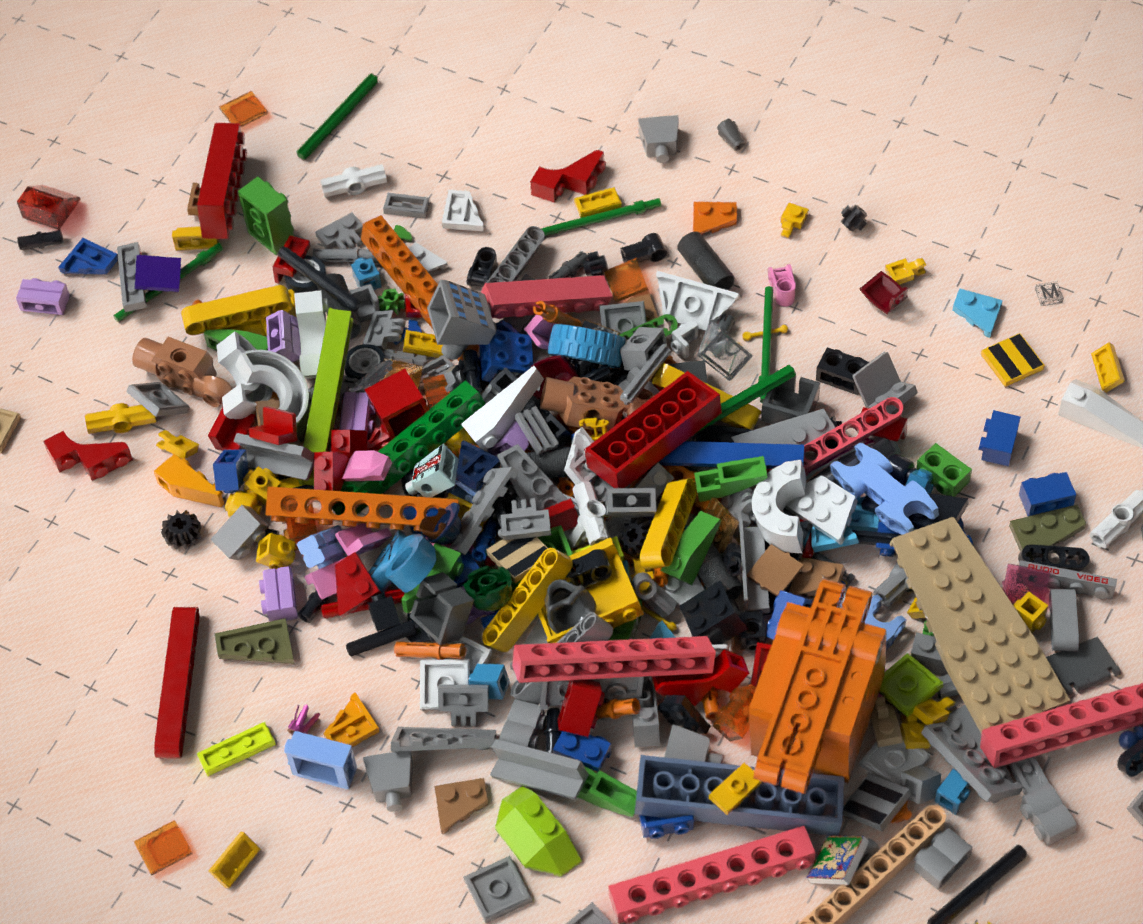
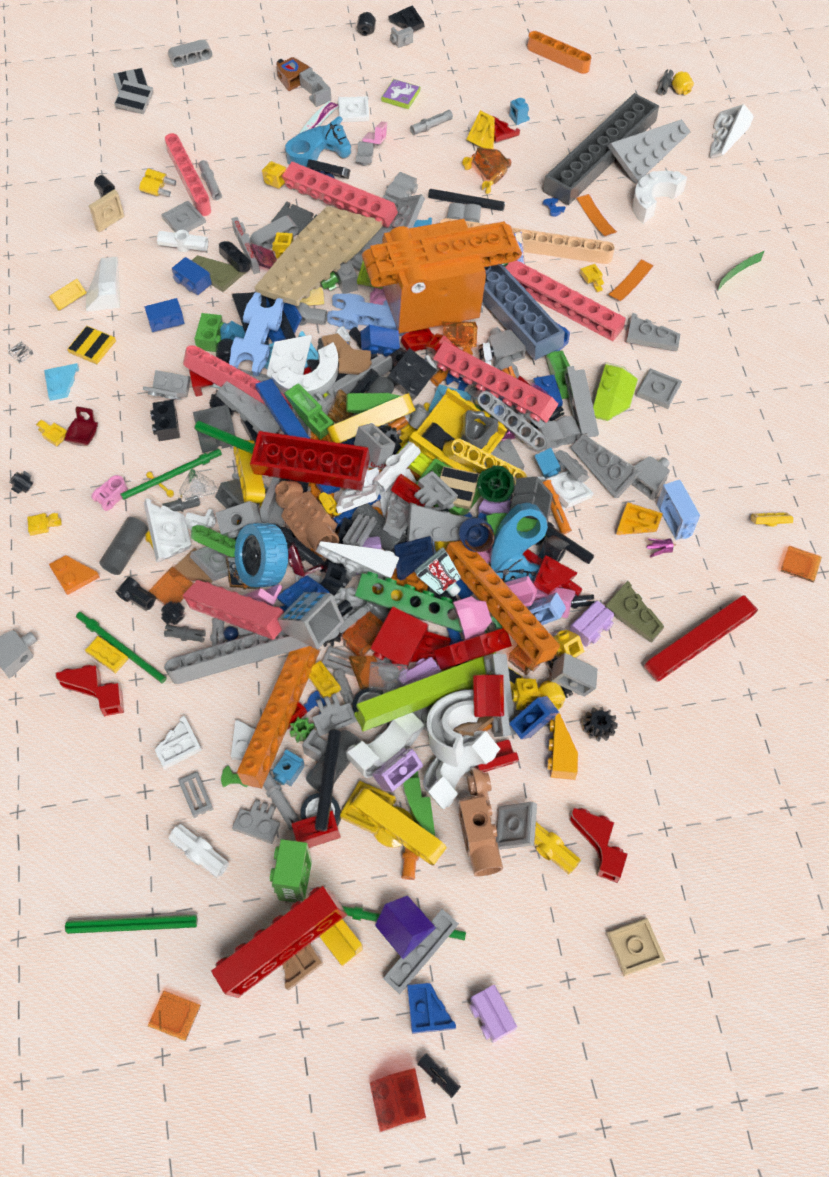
camera: 130 degrees left, 5 degrees up
(178, 445) = (537, 782): yellow plate -> none
(236, 749) = (708, 574): neon yellow tile -> none
(459, 801) = (628, 437): medium nougat wing -> none
(482, 267) = (227, 687): black piece -> none
(553, 315) = (253, 583): orange pin -> none
(645, 374) = (267, 493): light grey axle -> none
(734, 789) = (515, 295): yellow plate -> none

